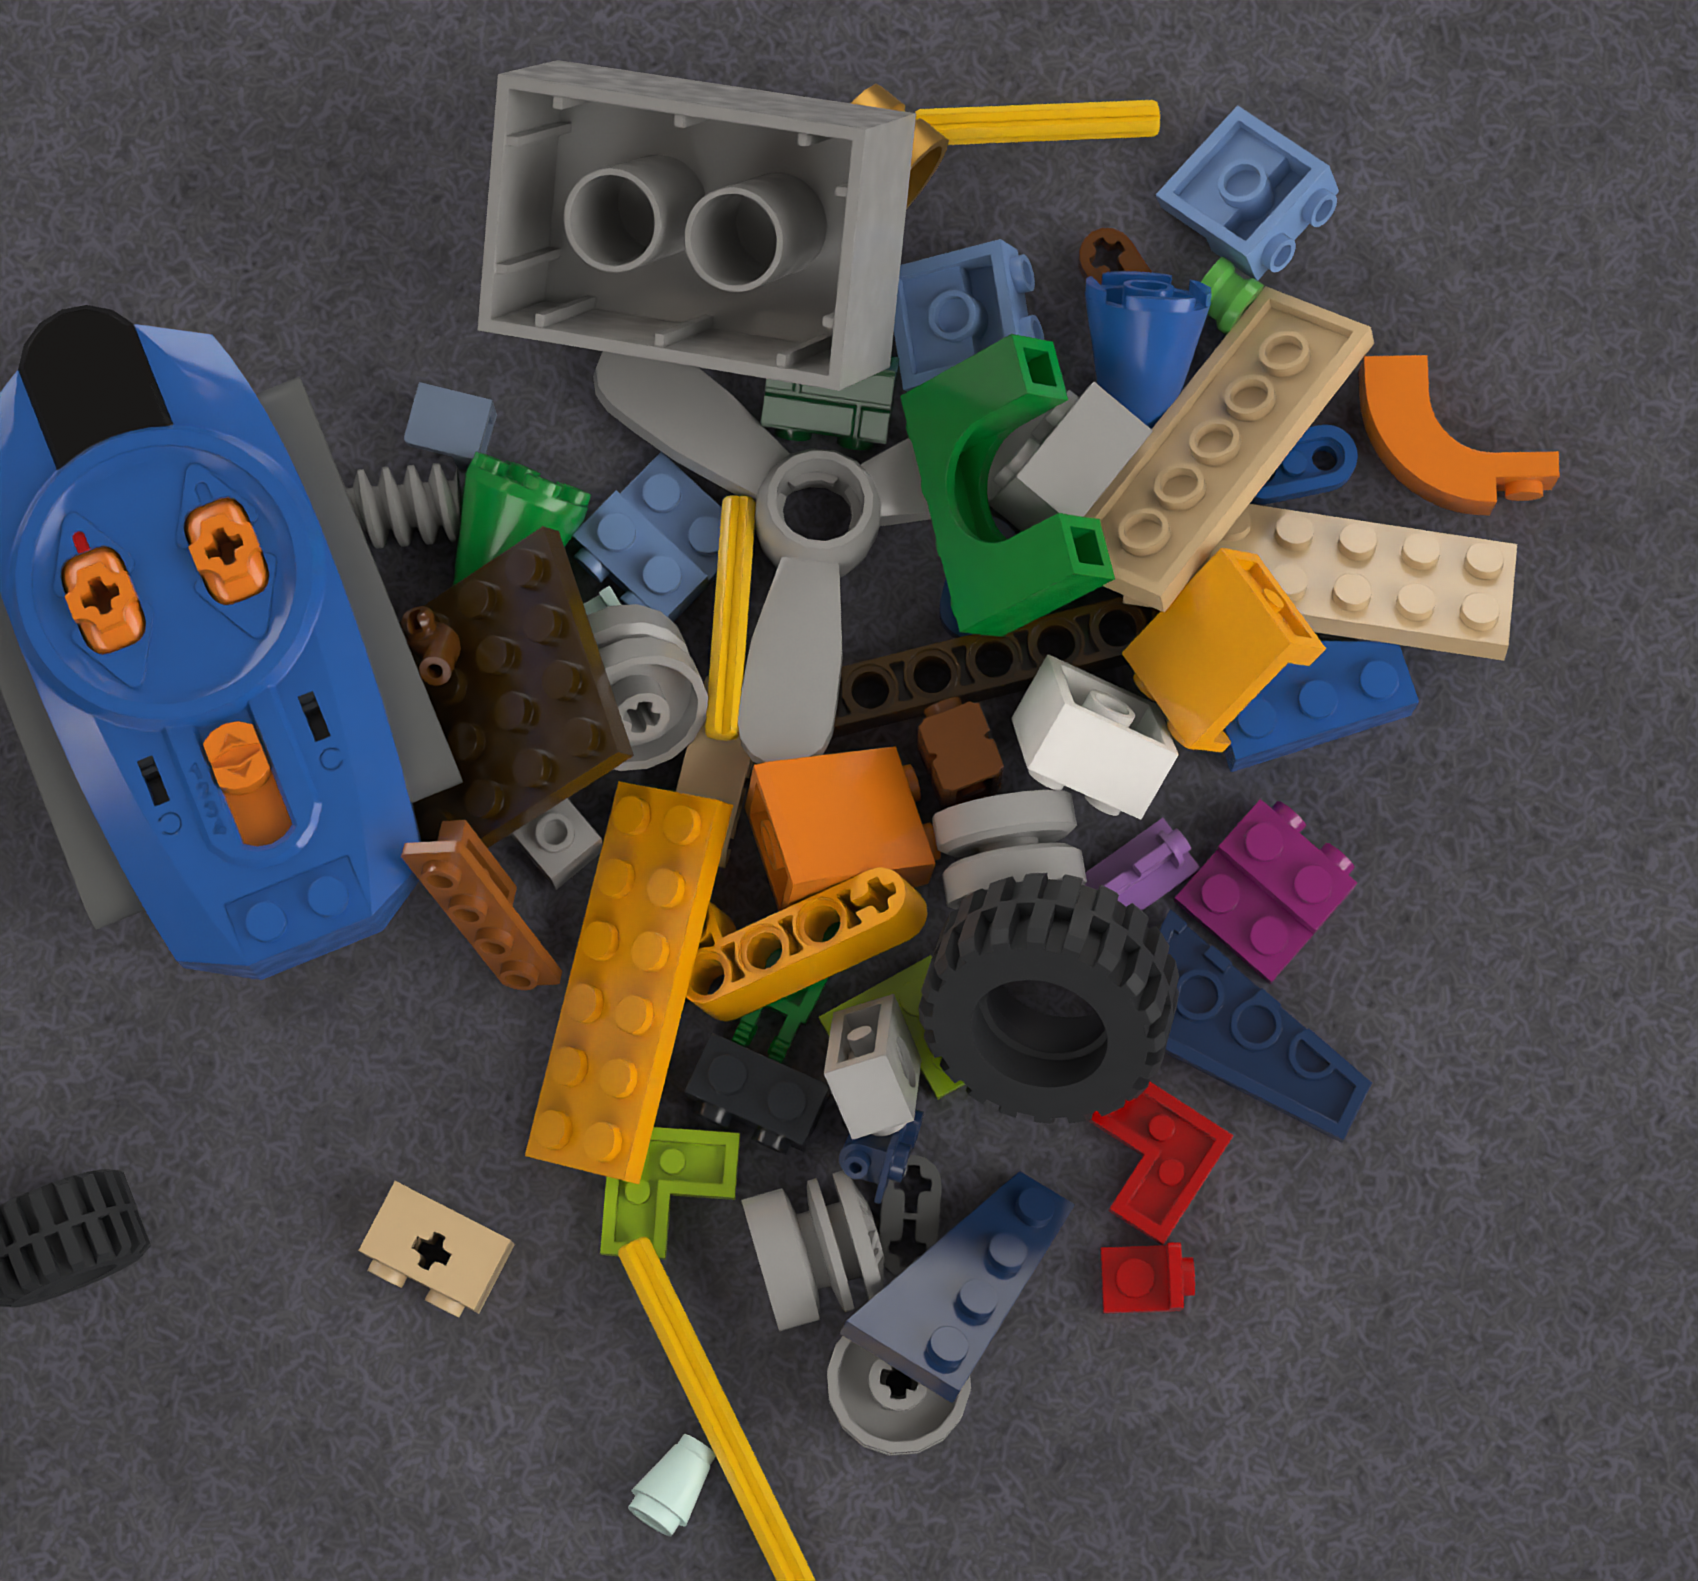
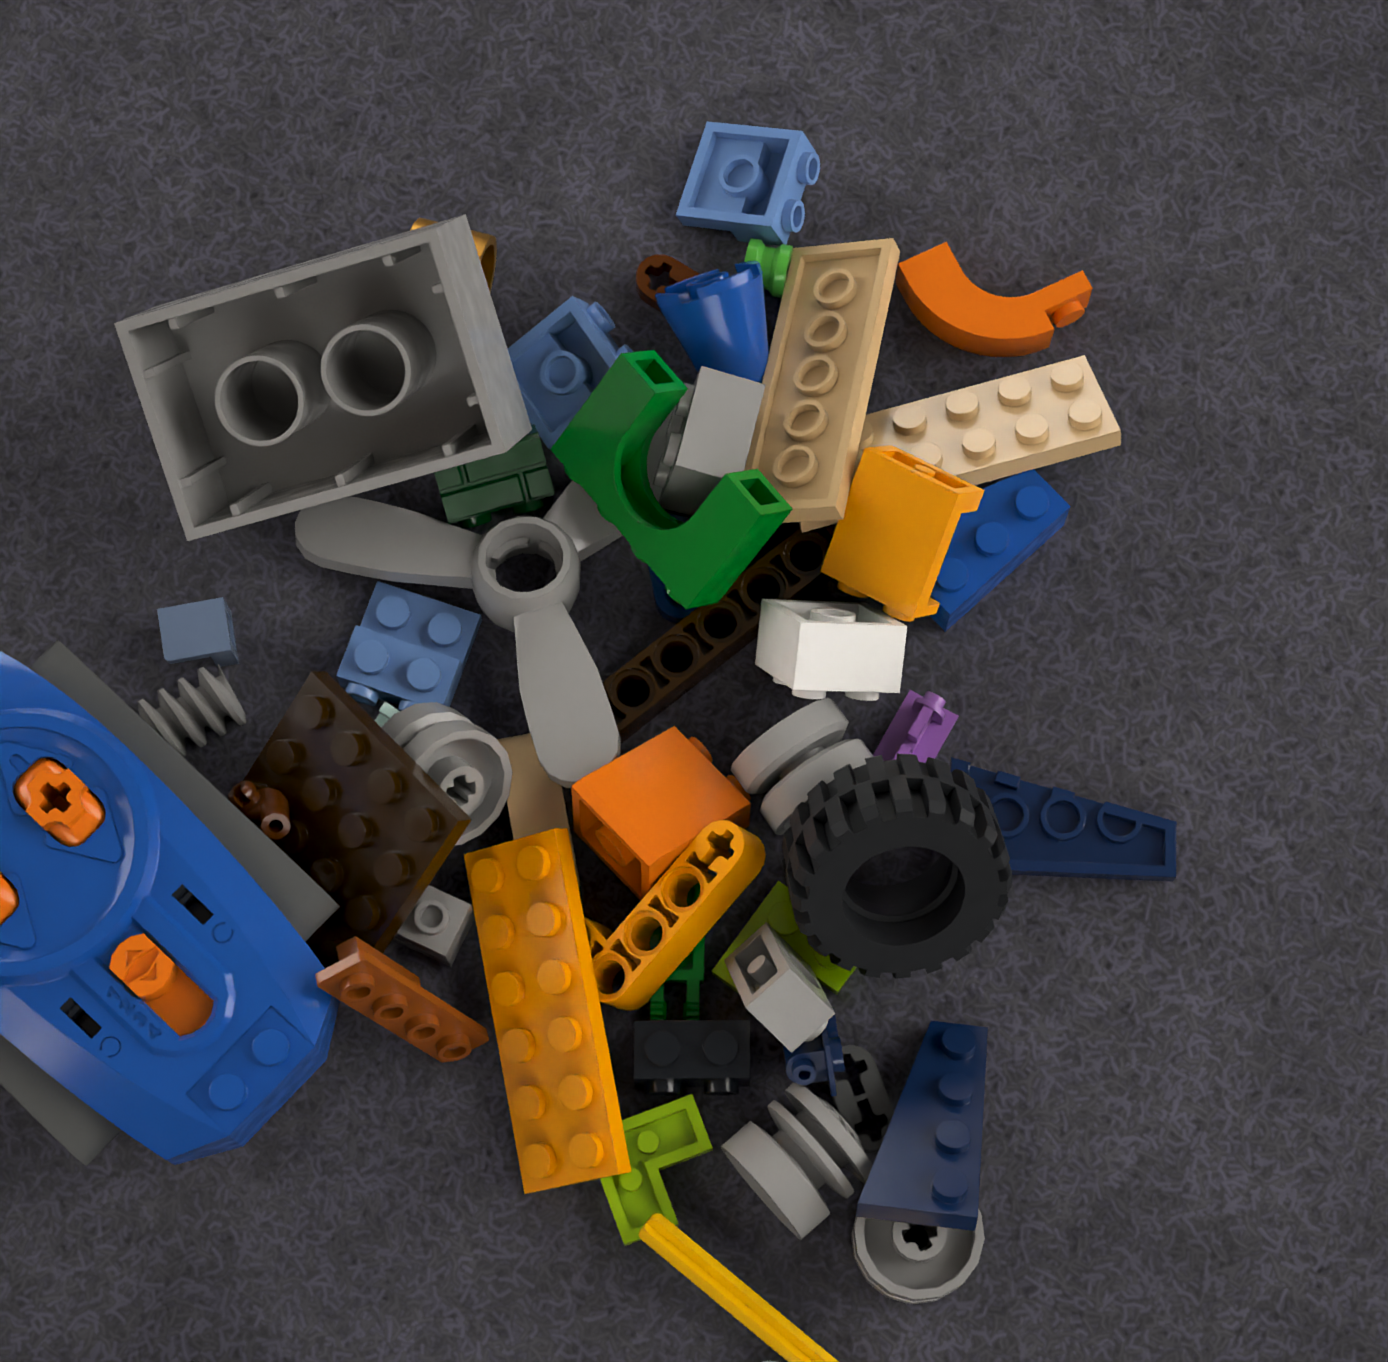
camera: 25 degrees left, 5 degrees down
(413, 1218) = (457, 1286): tan brick -> none
(508, 504) = (272, 674): green cone -> none
(730, 617) = (494, 683): yellow axle -> none
(959, 752) = (727, 707): reddish brown brick -> none
(1045, 121) = (567, 196): yellow axle -> none
(1145, 1278) = (1073, 1060): red bracket -> none
(1177, 1158) = (1051, 956): red plate -> none
(1267, 888) = (1019, 707): magenta plate -> none
(1300, 477) = (890, 379): blue plate -> none

